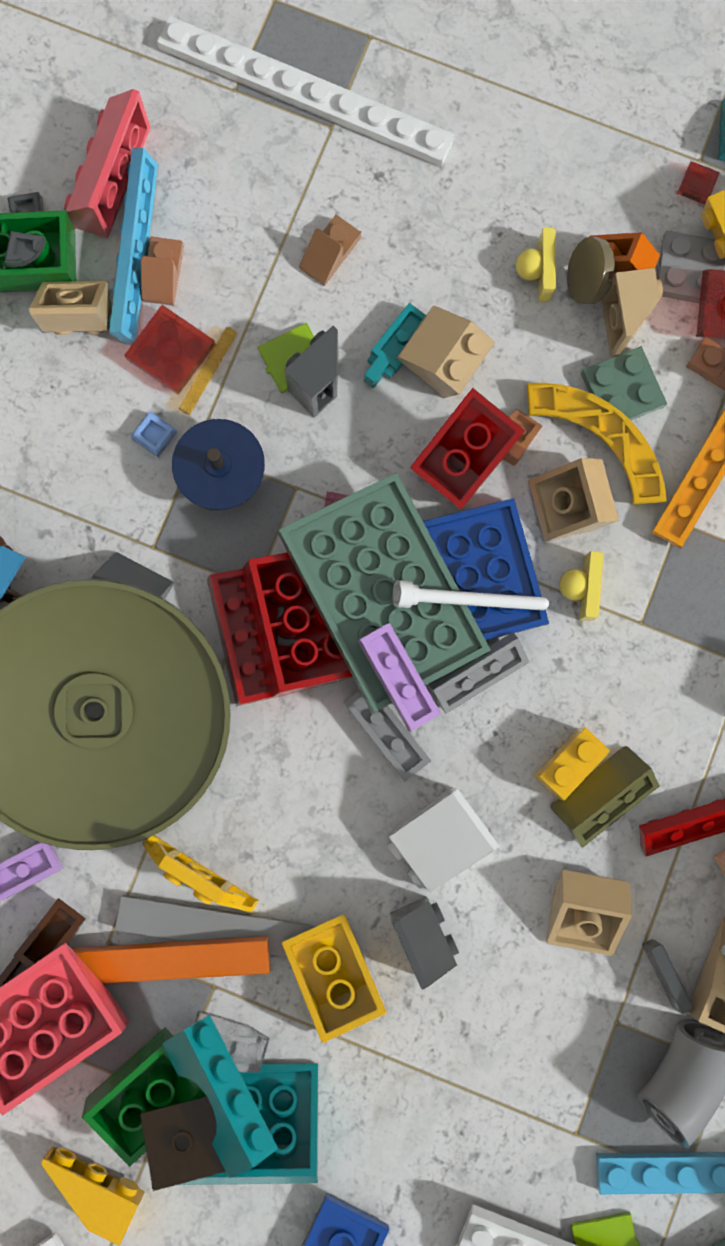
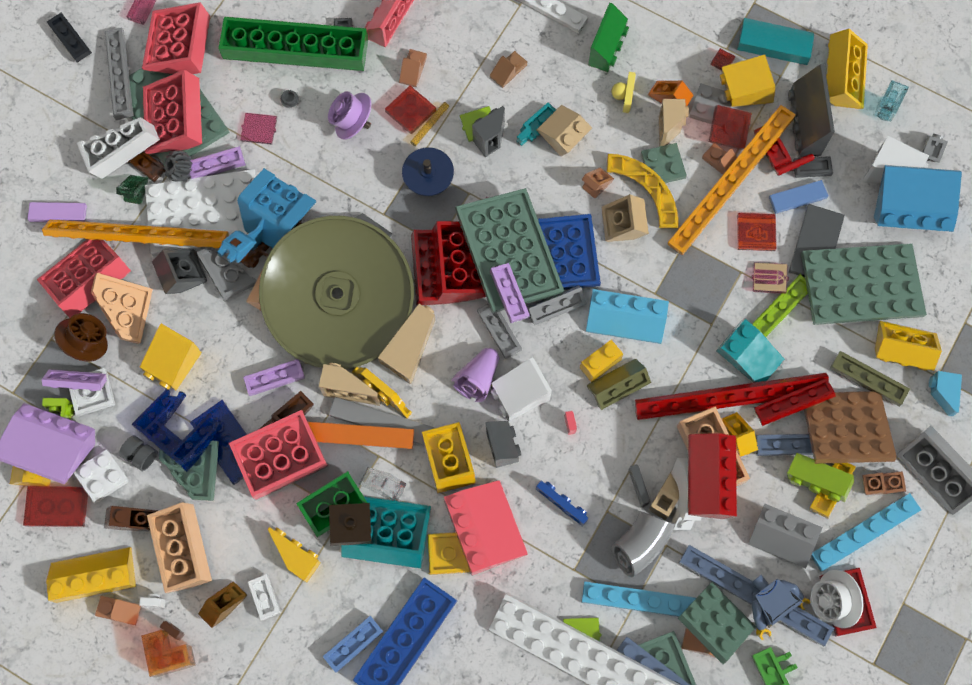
camera: 15 degrees right, 10 degrees down
(23, 249) = (340, 45): dark grey tile -> none
(62, 375) = (350, 114): none -> lavender piece
(72, 307) = (361, 79): tan slope -> none
(132, 879) = (340, 383): none -> tan slope
(133, 245) = (400, 50): medium azure plate -> none
(153, 434) = (394, 153): light blue tile -> none
(233, 786) = (407, 346): none -> tan slope
(241, 1132) = (383, 519): teal arch -> none
(360, 1142) = (446, 554): none -> yellow tile
(363, 821) = (477, 375): none -> lavender cone
(407, 594) = (521, 250): white piece -> none
(416, 1092) = (485, 526): none -> coral slope
(467, 448) = (567, 181): red slope -> none
(499, 171) = (608, 39): none -> green slope
(534, 881) = (570, 422): none -> coral tile
(542, 1026) = (562, 502): none -> blue plate
(585, 585) = (623, 266): light yellow tile -> none
(589, 912) = (598, 445): tan slope -> none
(590, 270) = (651, 97): dark tan tile -> none
(603, 675) = (627, 316): none -> medium azure slope

